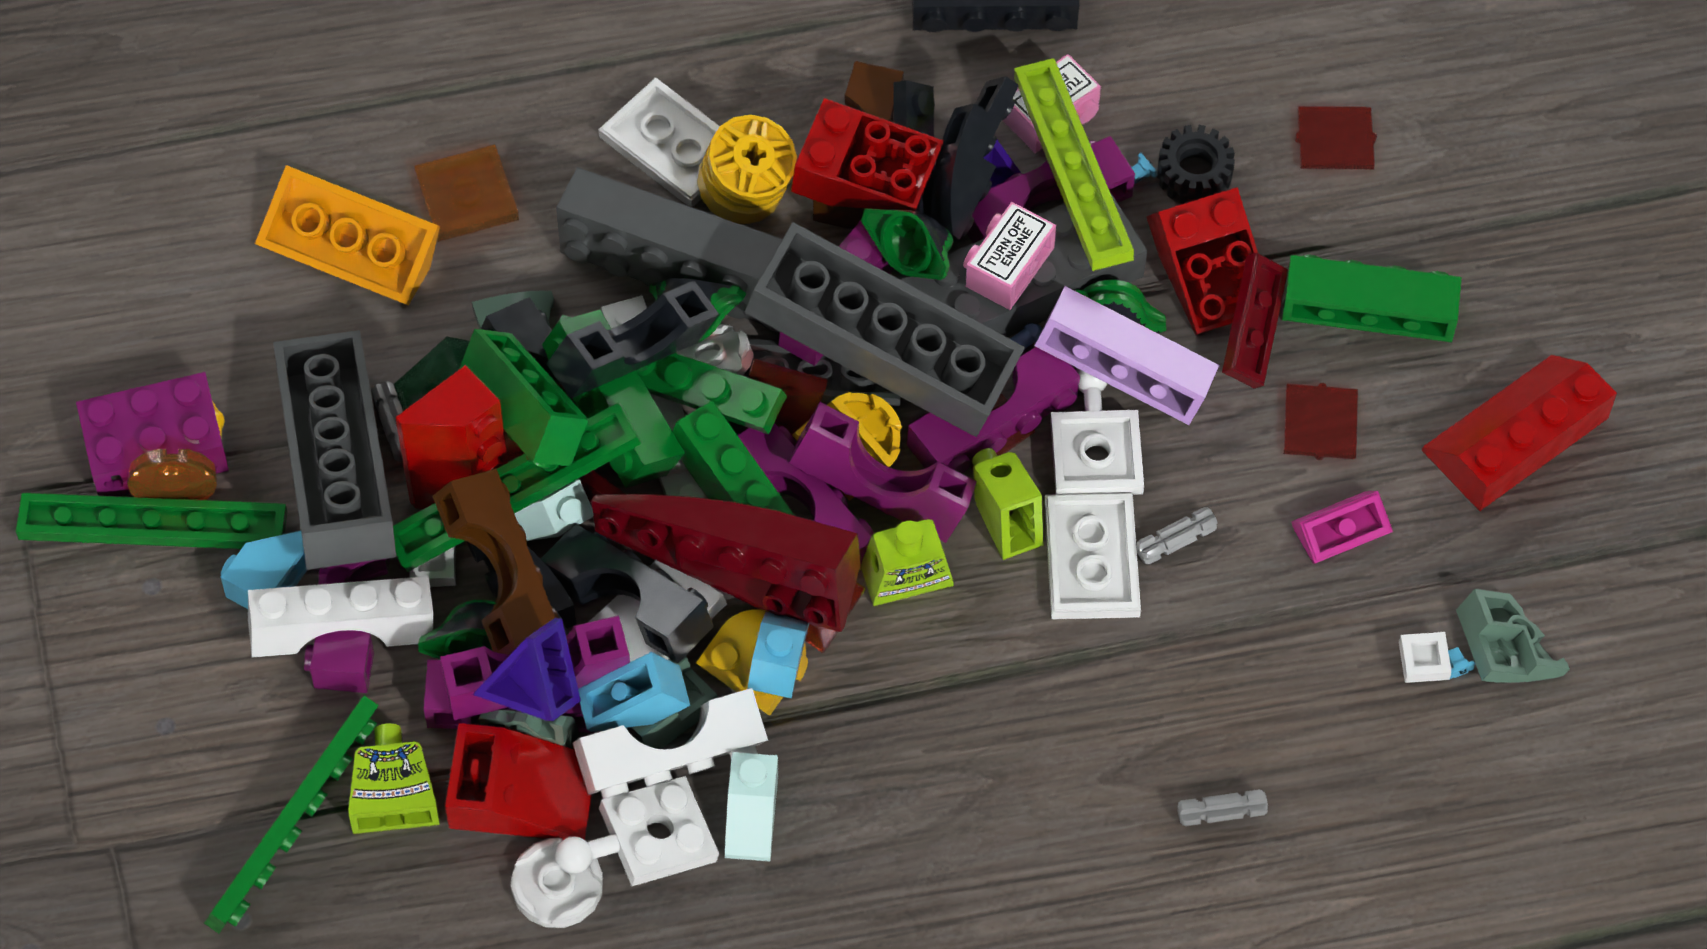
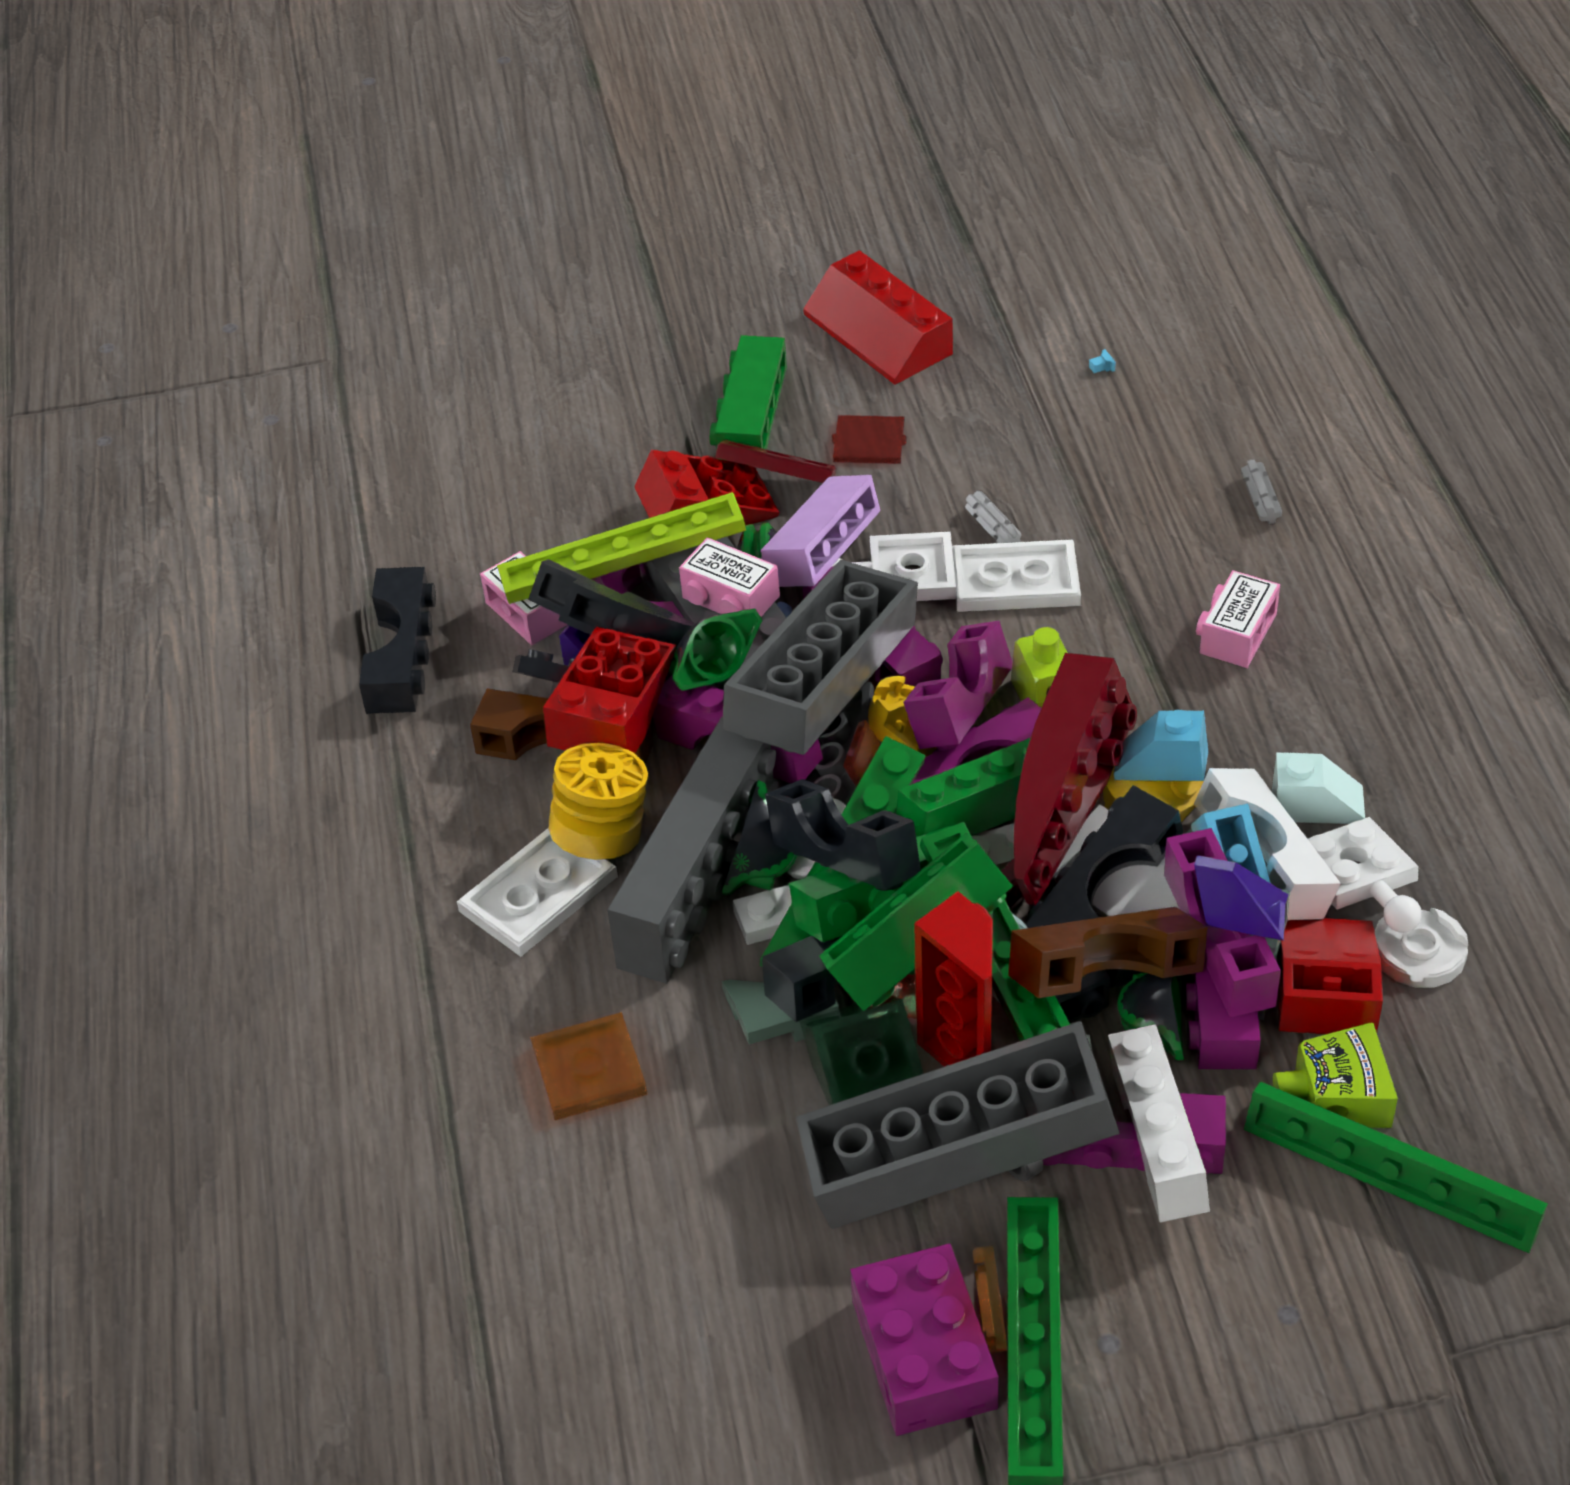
camera: 85 degrees left, 15 degrees down
(264, 565) = (1095, 1209): medium azure slope -> none
(348, 235) = (645, 1168): light orange slope -> none
(1005, 487) = (973, 599): lime torso -> none
(1005, 758) = (1238, 618): none -> brick
(1195, 145) = (597, 492): black tyre -> none
(1335, 137) = (573, 429): clear red piece -> none
(1342, 526) = (972, 425): dark pink slope -> none
(1425, 657) = (1103, 374): white plate -> none
(1504, 640) = (1079, 335): sand green slope -> none

